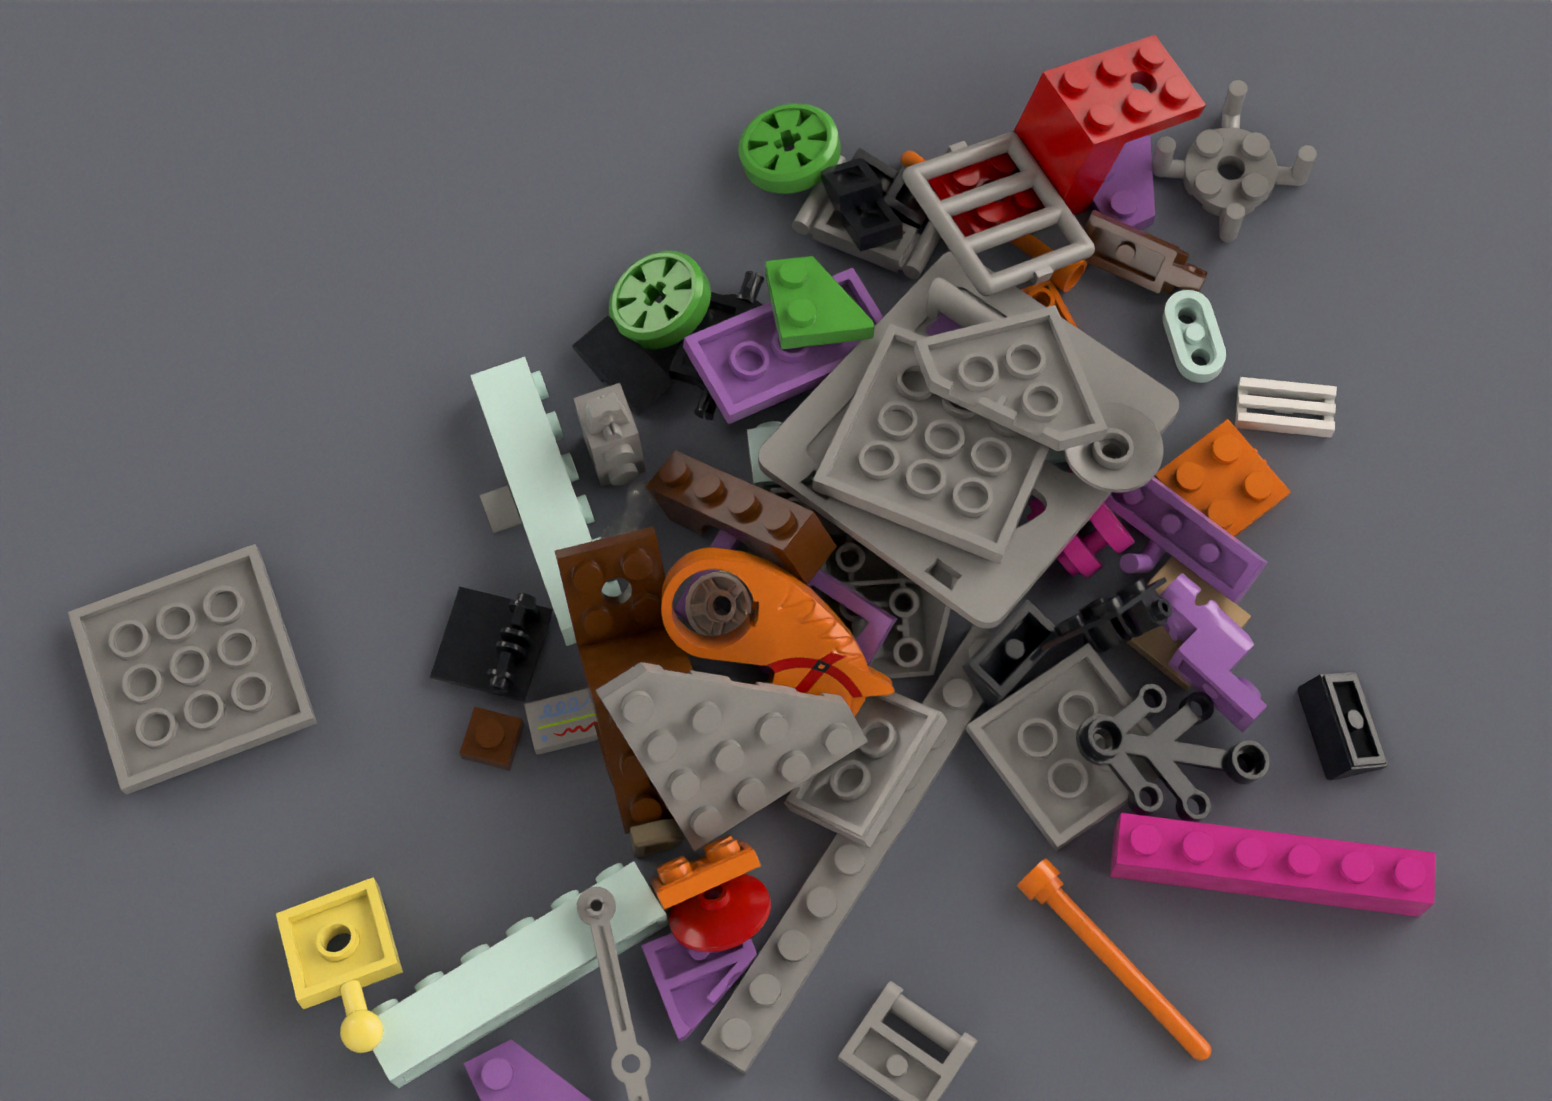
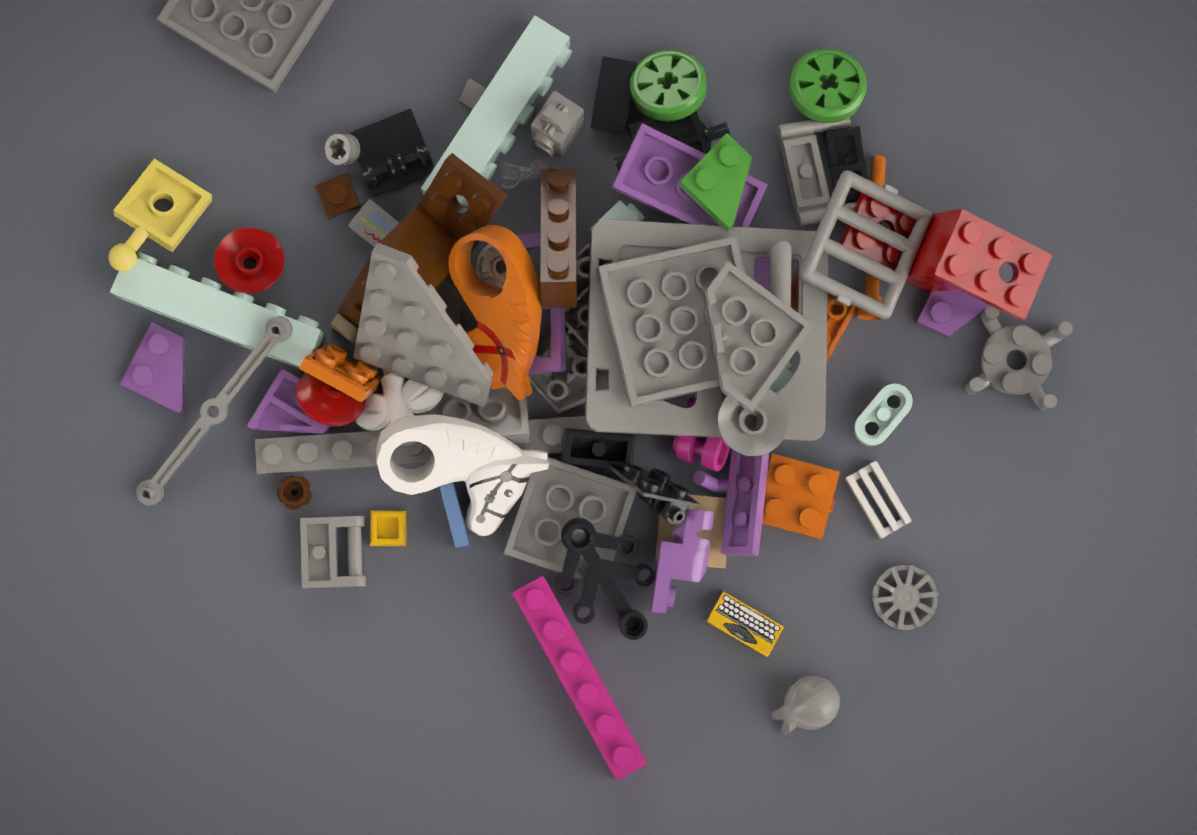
camera: 50 degrees right, 15 degrees up
(440, 706) = (350, 145): none -> light grey bush
(471, 876) = (246, 246): none -> red dish
(792, 841) = (397, 401): none -> white plant
(797, 1029) = (285, 492): none -> reddish brown plate
(859, 204) = (818, 157): black slope -> none
(905, 798) = (464, 452): none -> white animal
(926, 964) = (388, 528): none -> yellow tile
(966, 869) = (455, 515): none -> medium blue tile
(1046, 887) = (478, 563): orange piece -> none
(1140, 256) = (911, 347): reddish brown hinge -> none
(1332, 642) = (745, 624): none -> slope
(1341, 725) = (698, 663): black slope -> none
(1419, 453) = (905, 597): none -> light grey wheel
(1478, 634) = (808, 704): none -> light grey piece

